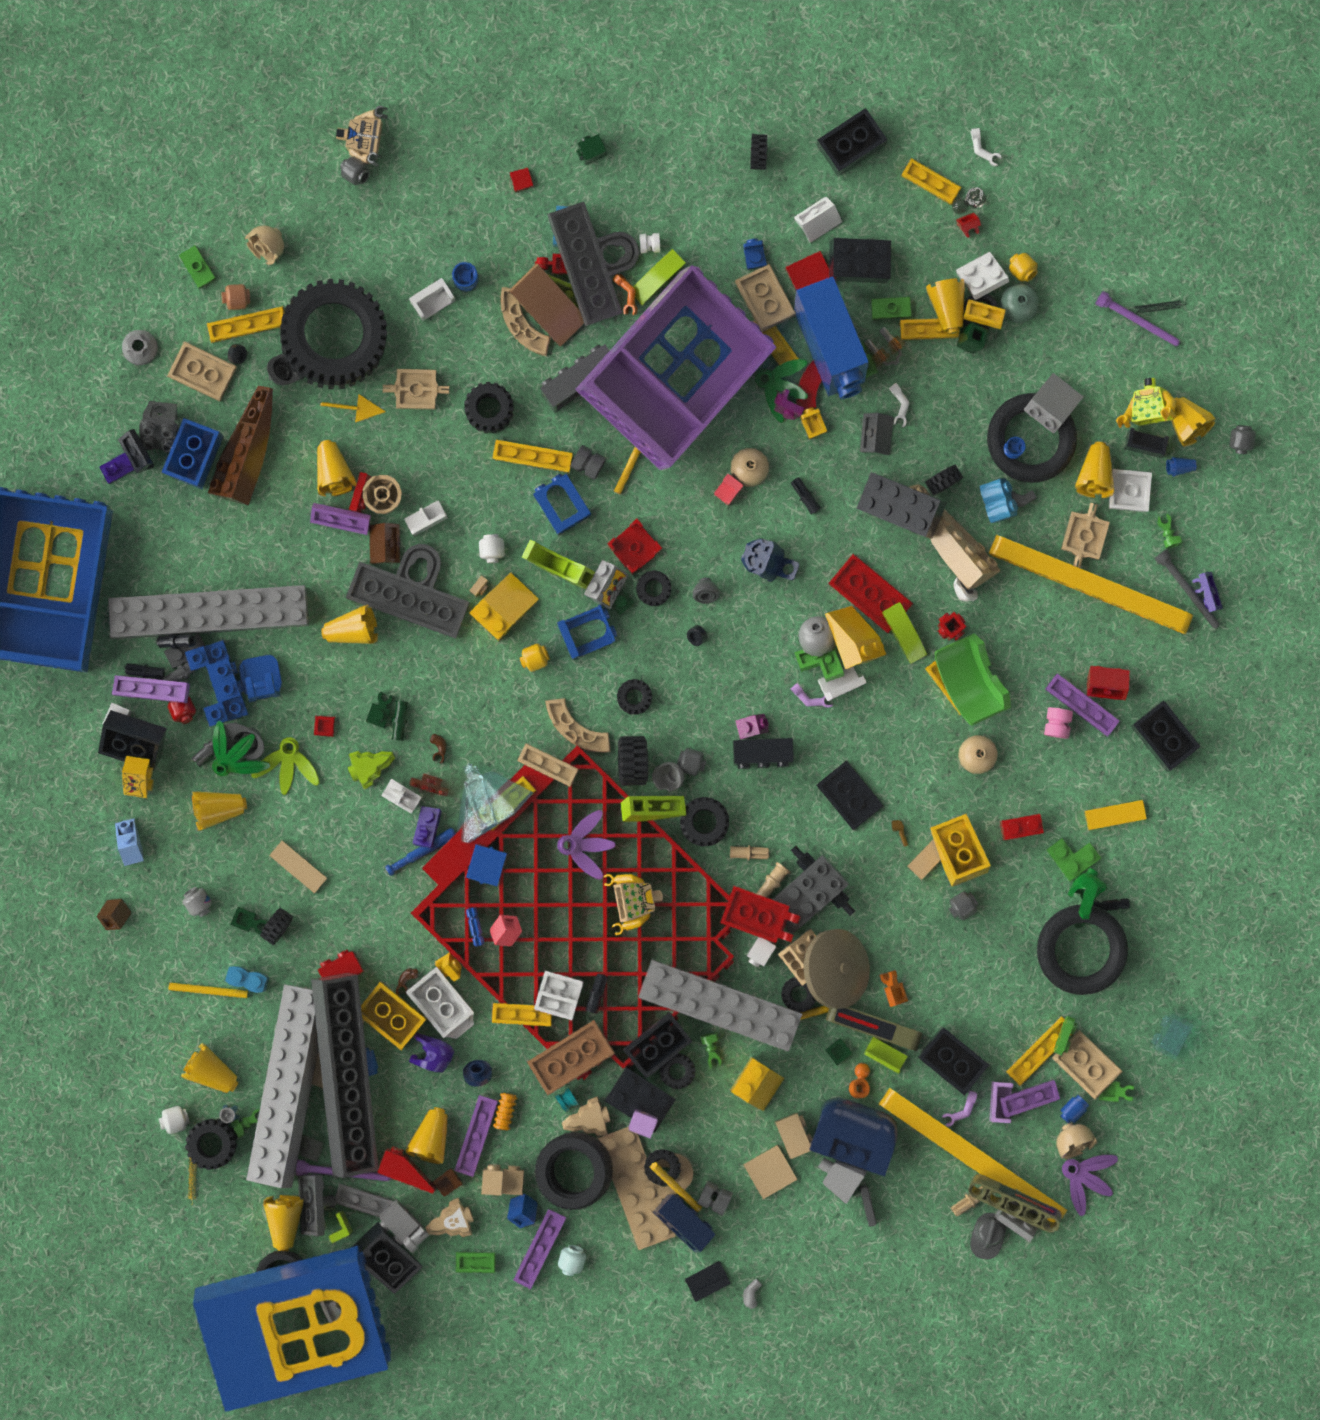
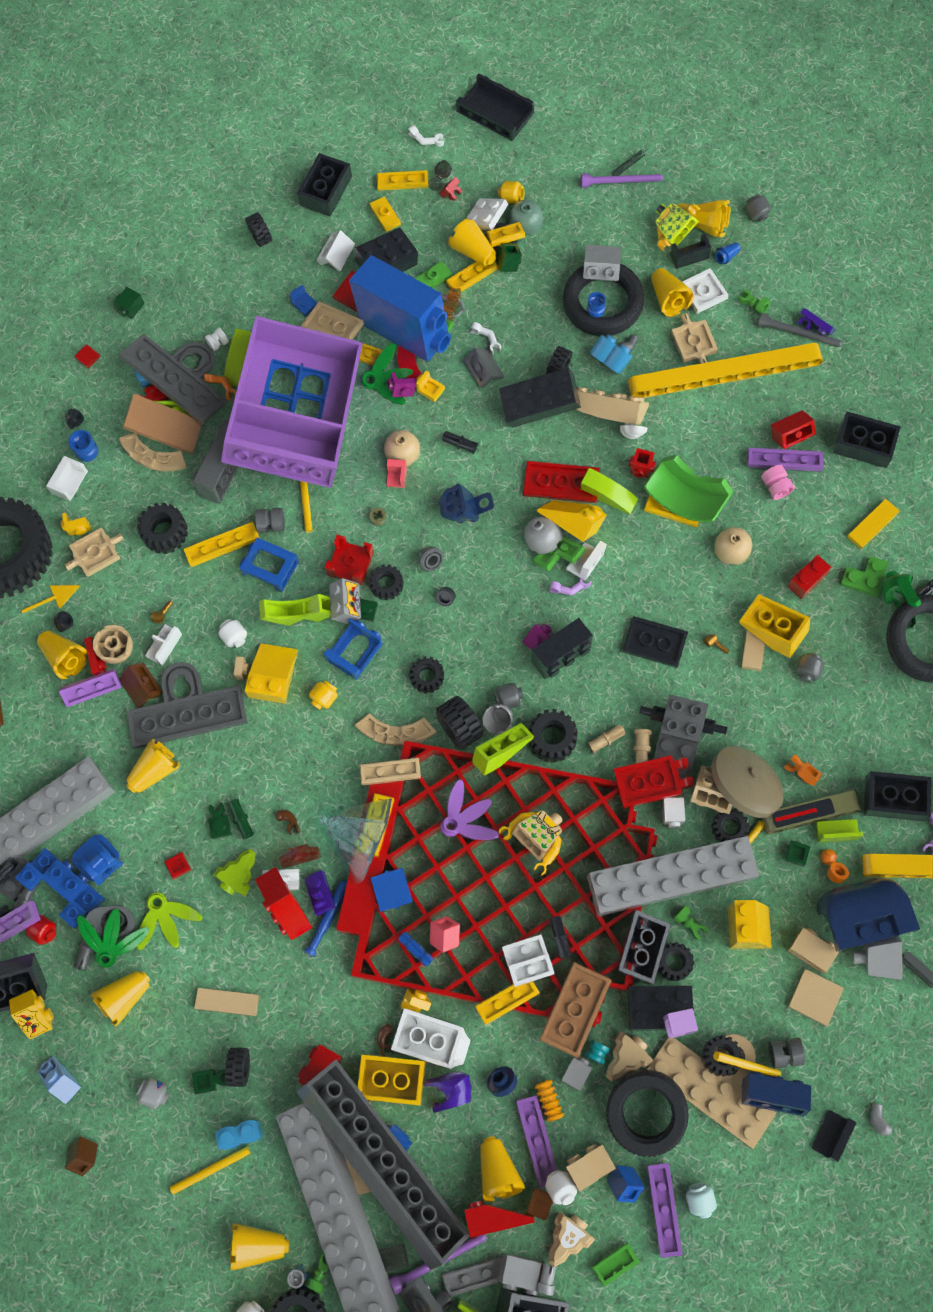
camera: 25 degrees left, 15 degrees down
(351, 439) = (63, 621): none -> black tile
(390, 820) = (282, 904): none -> red wedge
(415, 355) = (75, 527): none -> yellow bracket
(436, 489) = (158, 617): none -> pearl gold hand
(470, 1181) = (561, 1187): none -> white head
(472, 240) = (74, 418): none -> black tile
(540, 1105) = (577, 1073): none -> light grey brick
(684, 525) = (380, 521): none -> olive bush
(890, 208) = (385, 214): none -> yellow plate
(1072, 160) = (496, 107): none -> black panel

